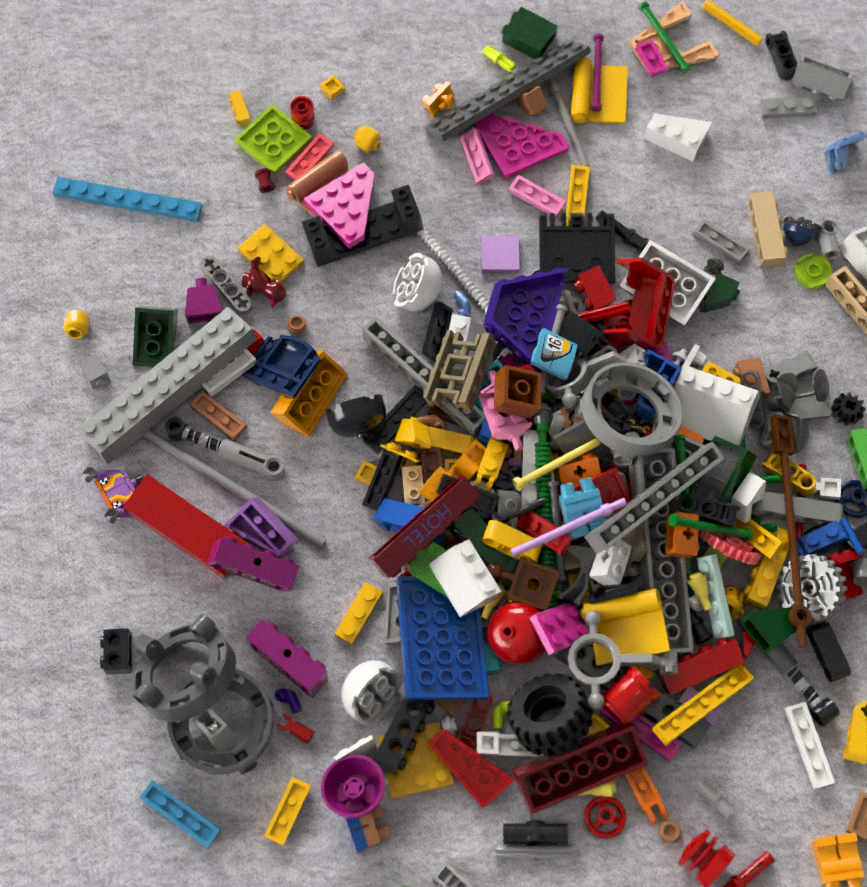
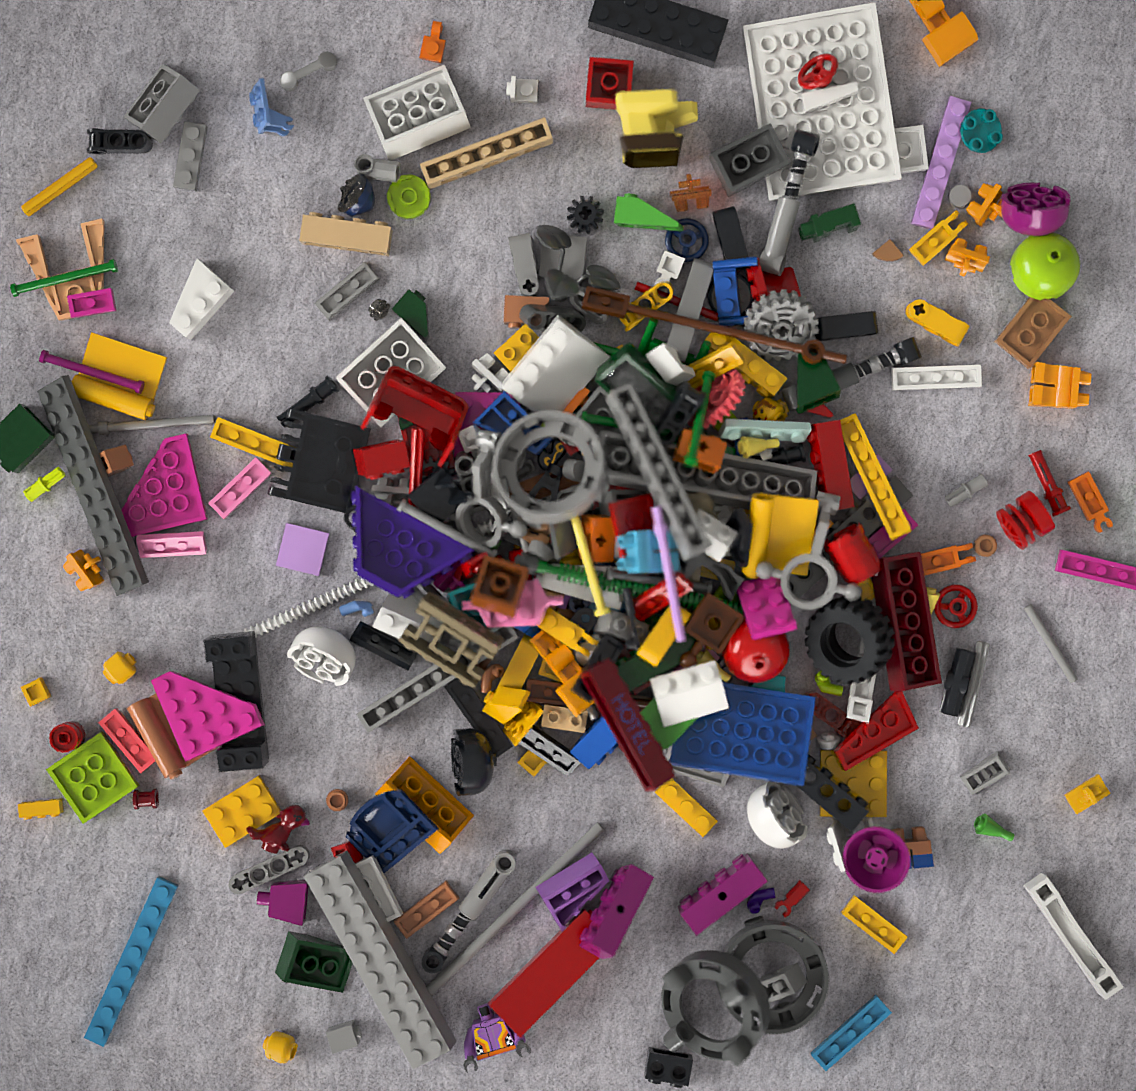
camera: 70 degrees left, 20 degrees up
(554, 354) = (458, 530): medium azure slope -> none

